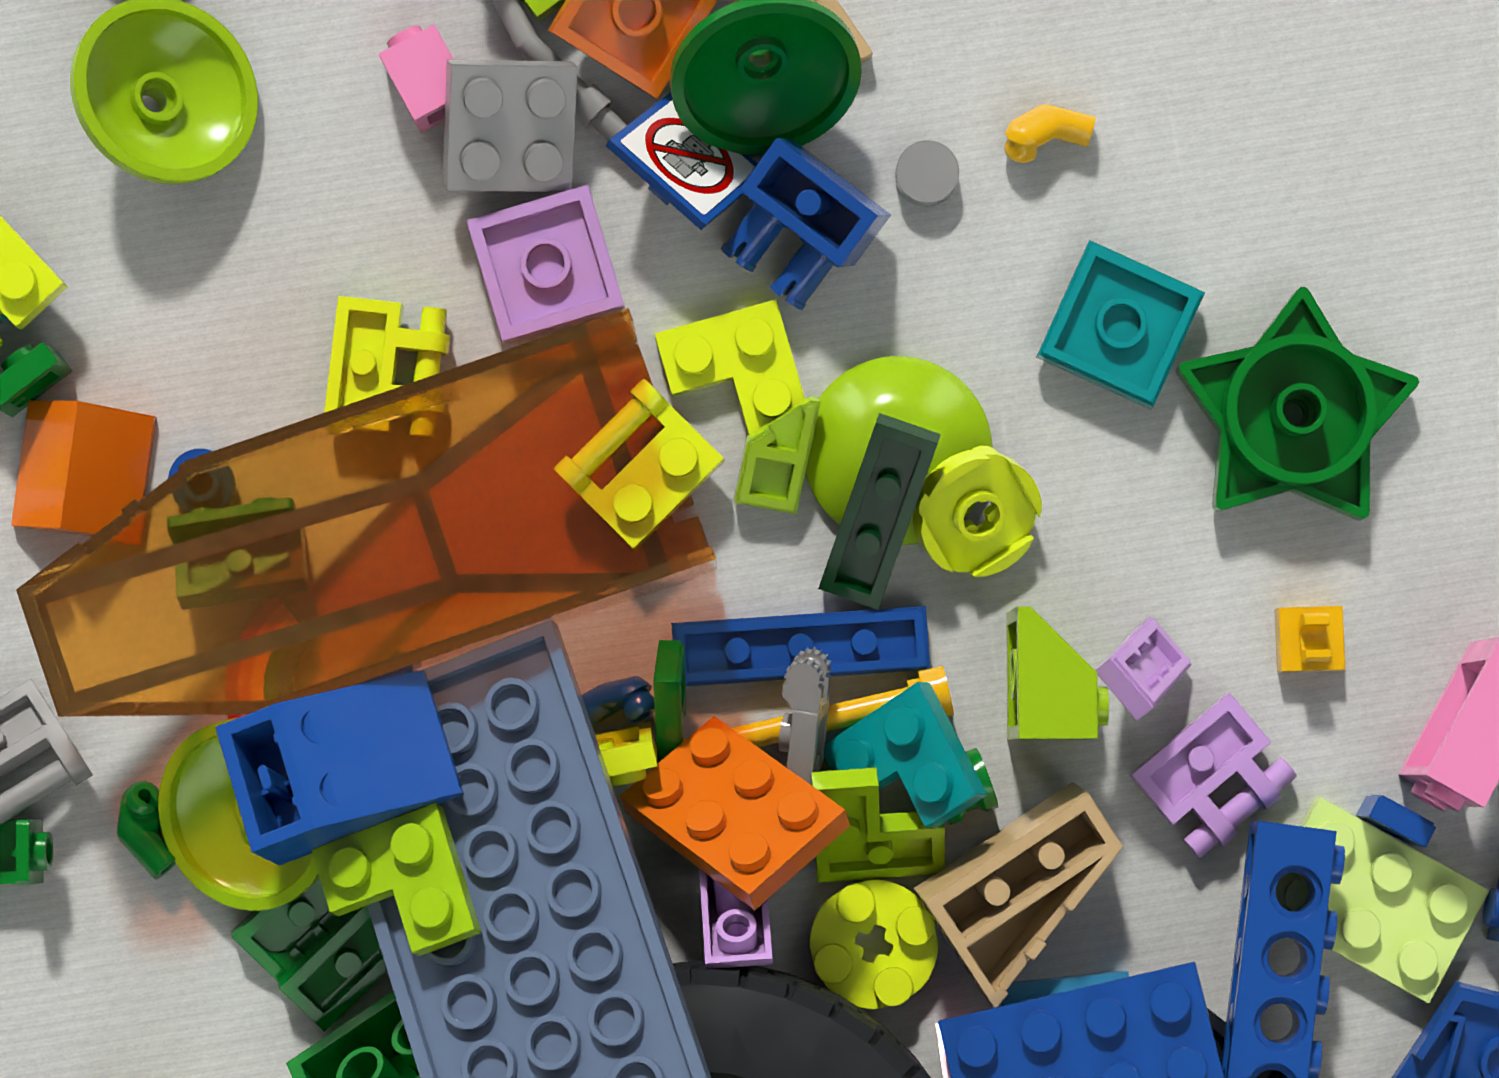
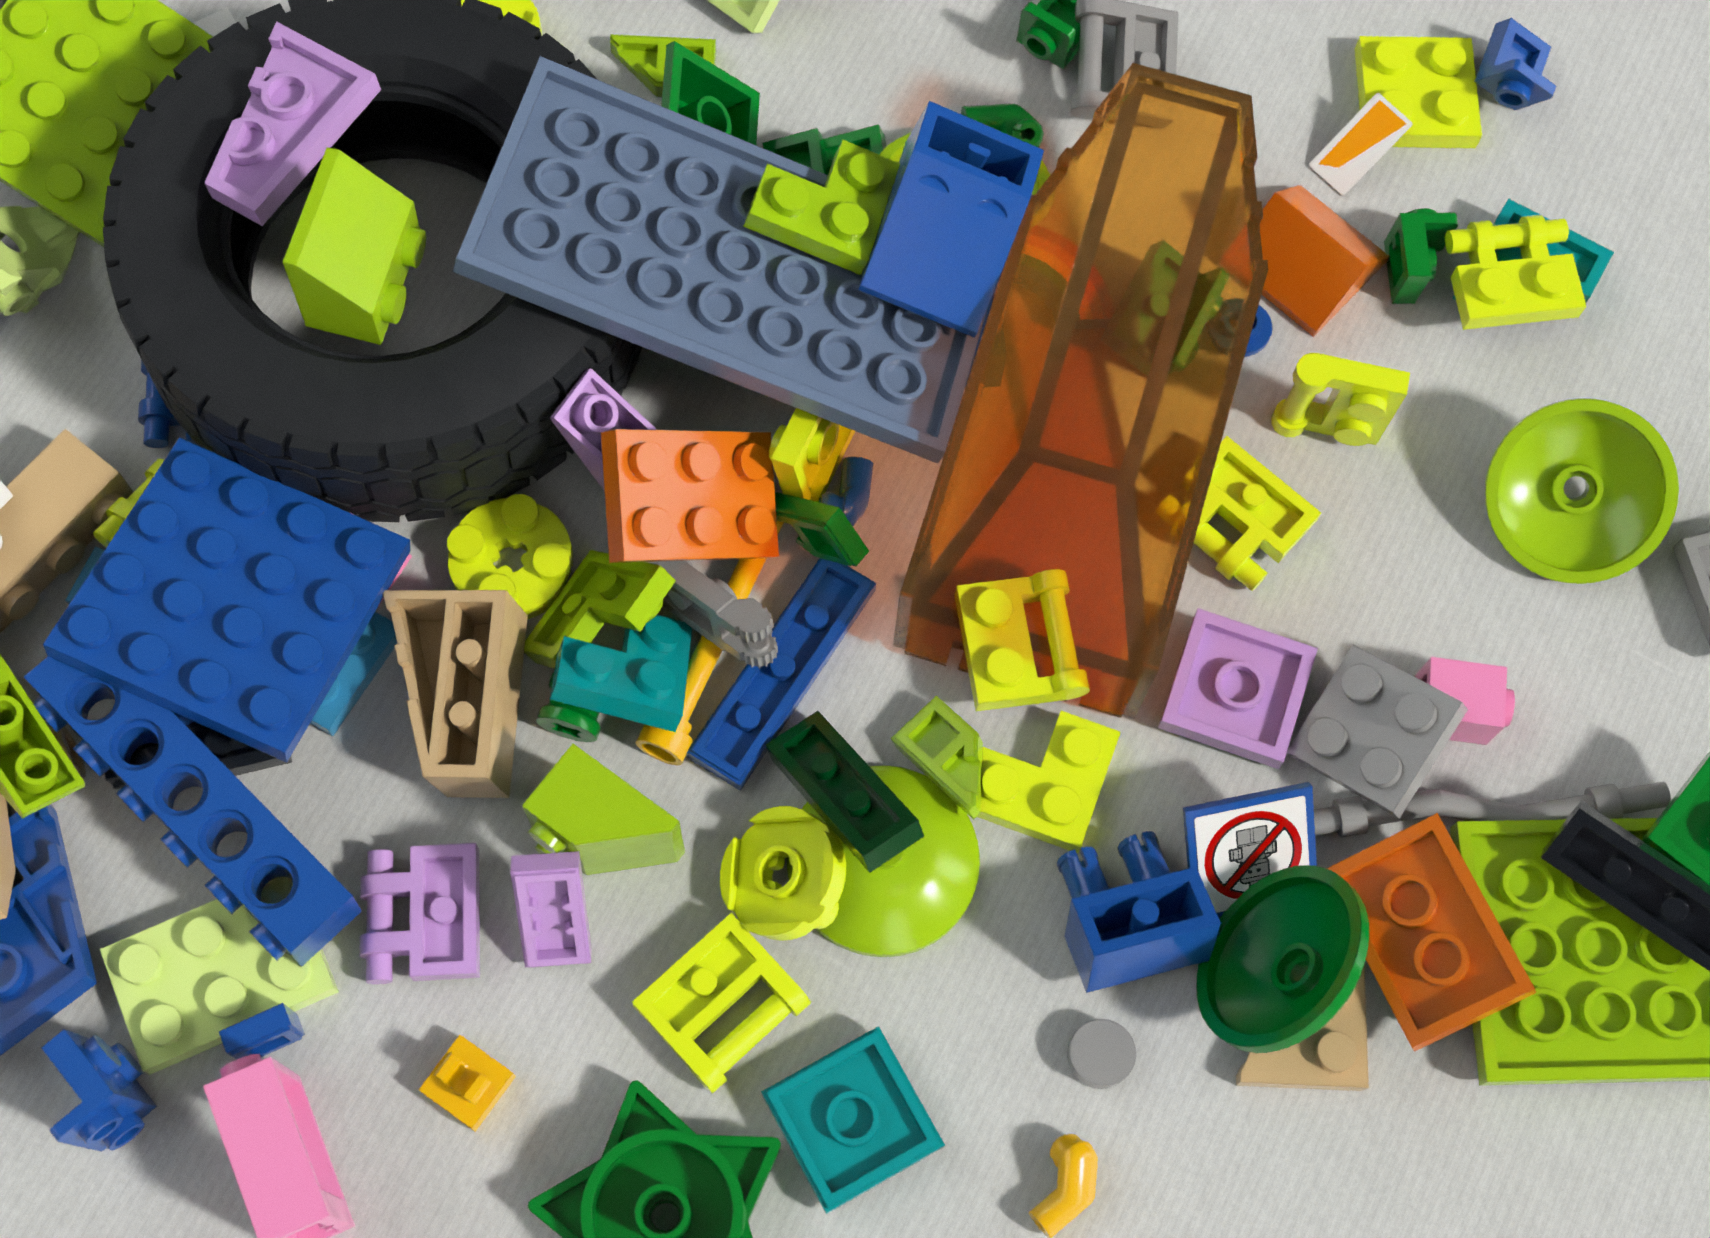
camera: 125 degrees right, 15 degrees down
(222, 330) = (1357, 407): none -> neon yellow plate
(1103, 510) = (708, 984): none -> neon yellow plate

